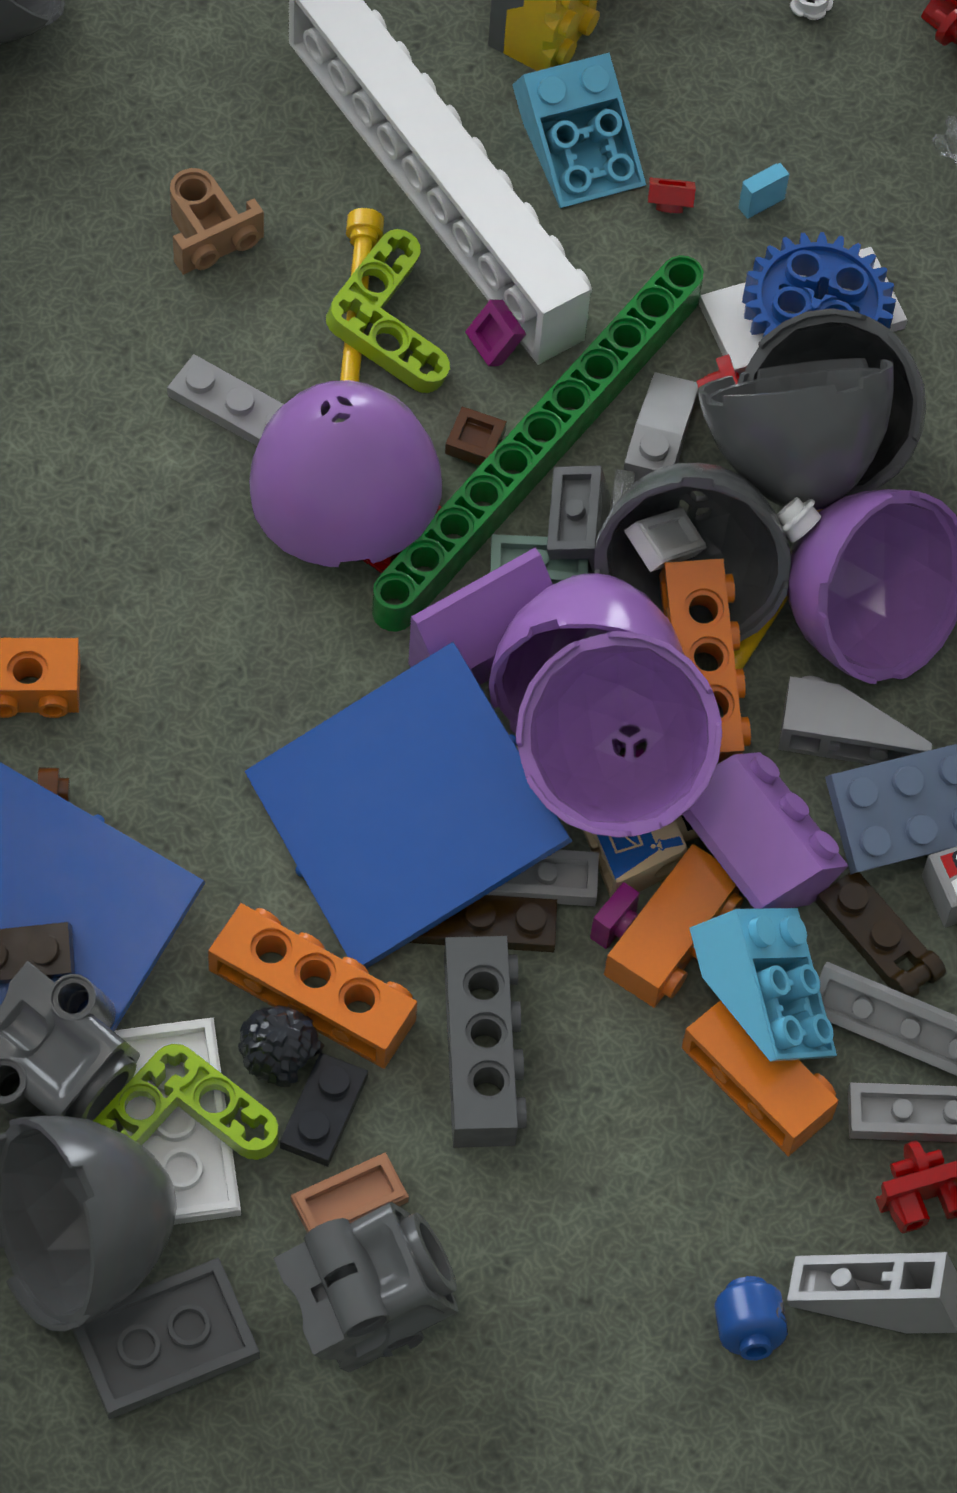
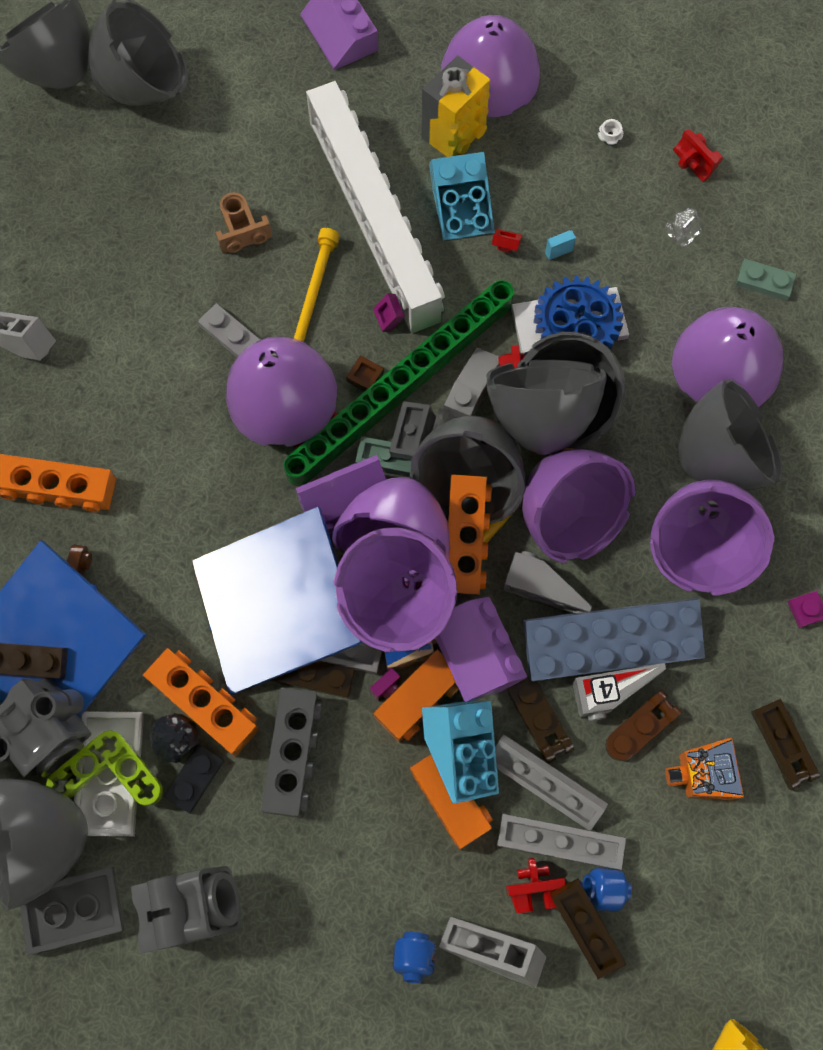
camera: 15 degrees right, 10 degrees up
(350, 1193) = (197, 837): nougat tile -> none
(369, 308) = (319, 288): lime beam -> none
(665, 538) = (456, 457): white tile -> none
(798, 518) = (533, 461): white plate -> none

